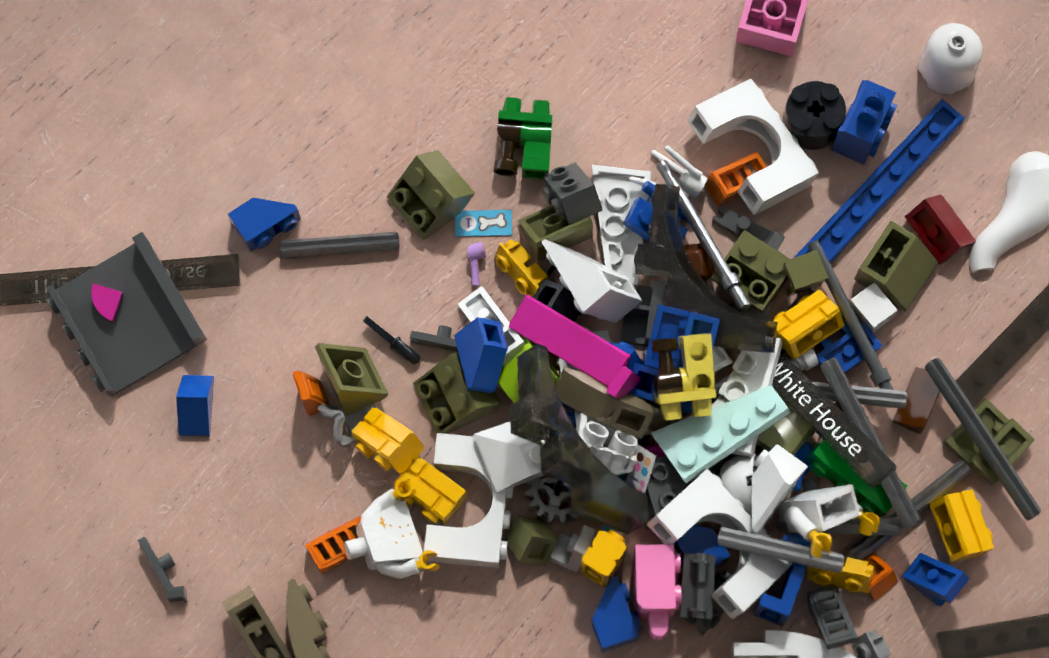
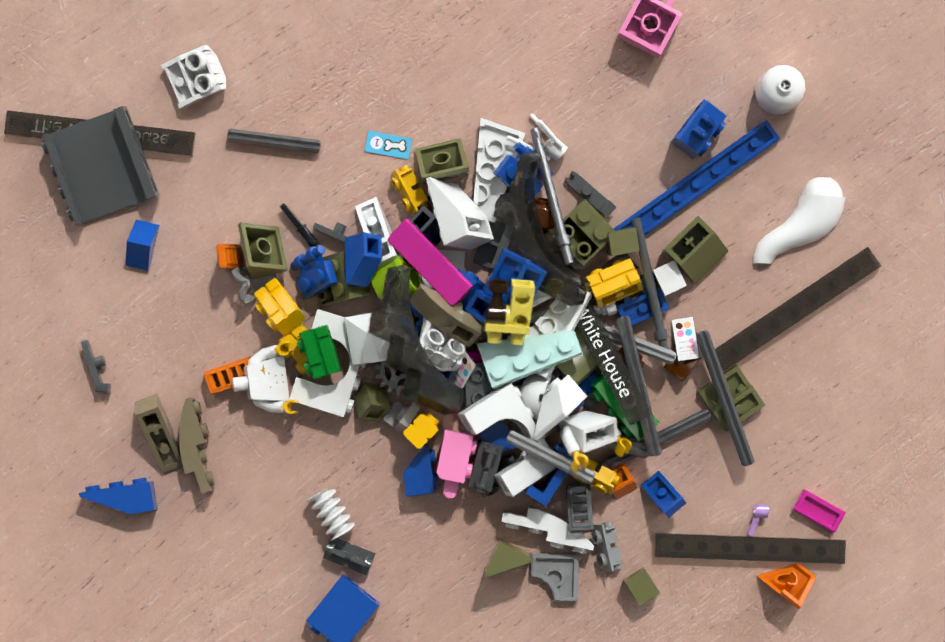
camera: 10 degrees right, 15 degrees up
(106, 301) = (86, 152): dark pink tile -> none
(225, 184) = (195, 75): none -> white slope
(263, 219) = (215, 109): blue slope -> none
(429, 395) = (314, 279): none -> blue plate
(430, 193) = (351, 115): olive slope -> none
(451, 483) = (319, 351): none -> green brick
(475, 252) = (377, 168): lavender hand -> none
(528, 131) = (435, 79): green hips -> none
(571, 193) = (459, 141): dark grey brick -> none
(623, 383) = (462, 306): dark pink tile -> none
(721, 187) = (573, 156): orange slope -> none
(748, 110) = (612, 98): white arch -> none
(817, 99) = (672, 103): black brick -> none
(912, 379) = (685, 339): none -> white sticker
(939, 228) = (738, 224): dark red panel -> none
(962, 526) = (693, 459): yellow brick -> none

